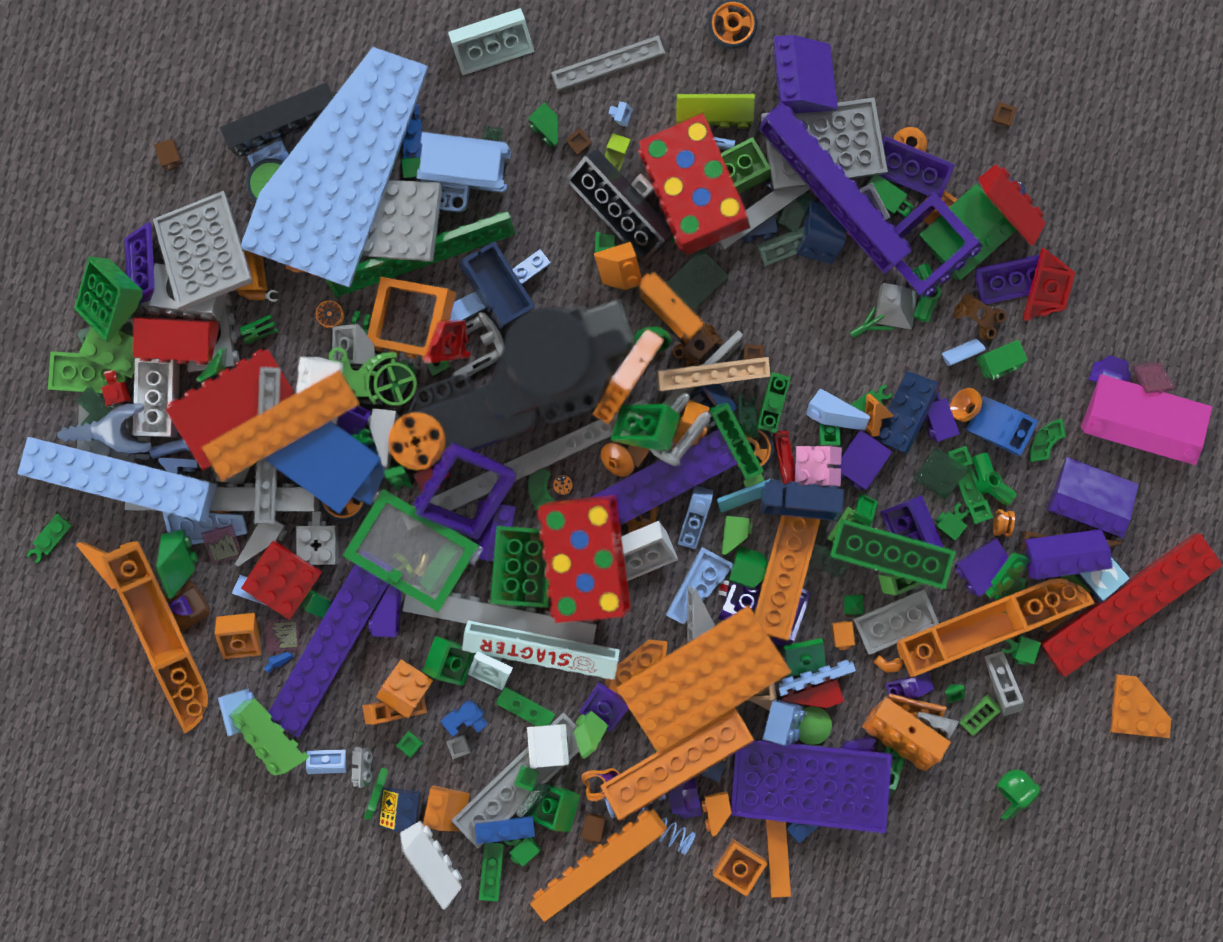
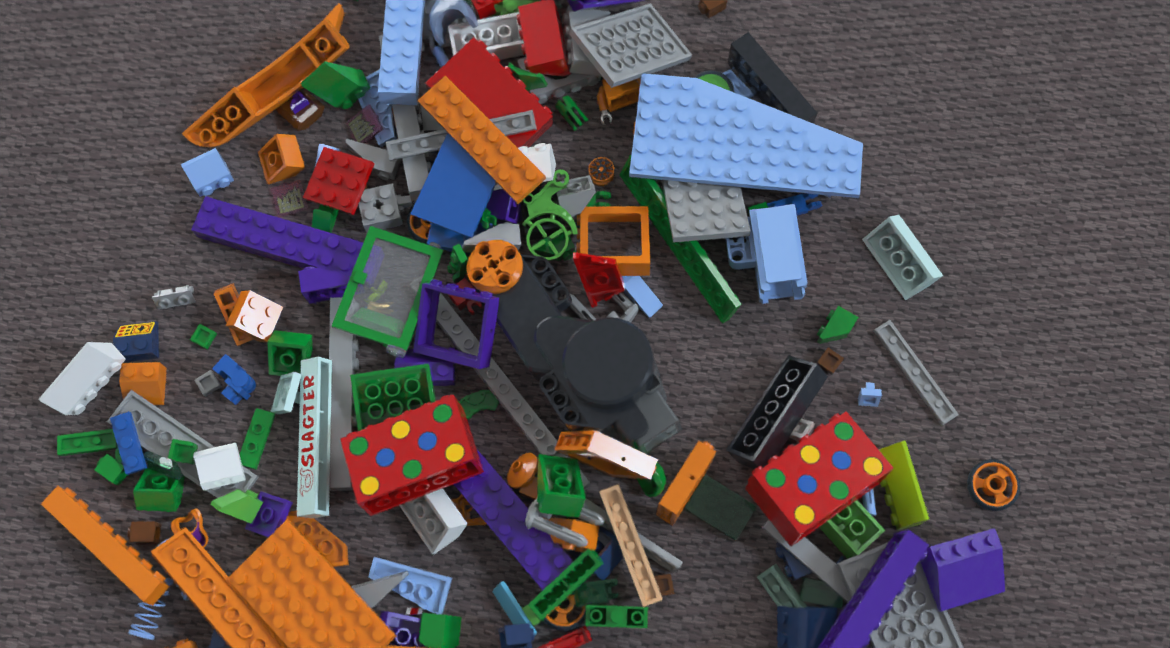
camera: 75 degrees right, 15 degrees down
(175, 465) = (427, 68): medium blue slope -> none
(267, 738) = (185, 200): bright green wedge -> none
(277, 661) = (263, 199): blue bar -> none
(326, 762) = (174, 264): light blue slope -> none
(377, 789) = (148, 314): green tile -> none
(436, 370) = (576, 283): green plate -> none
(492, 133) = (813, 279): clear green tile -> none
(496, 285) = (669, 311): dark blue piece -> none
(531, 266) = (693, 342): light blue hinge -> none
(562, 484) = (486, 424): orange tile -> none
(604, 241) = (734, 409): green panel -> none
(617, 150) = (832, 399): lime slope -> none
(619, 267) = (717, 425): orange slope -> none
(685, 800) = (186, 622): dark purple slope -> none
(695, 517) = (481, 564): light blue slope -> none
(708, 335) = (668, 534): reddish brown piece -> none
(735, 531) = (475, 608): bright green slope -> none

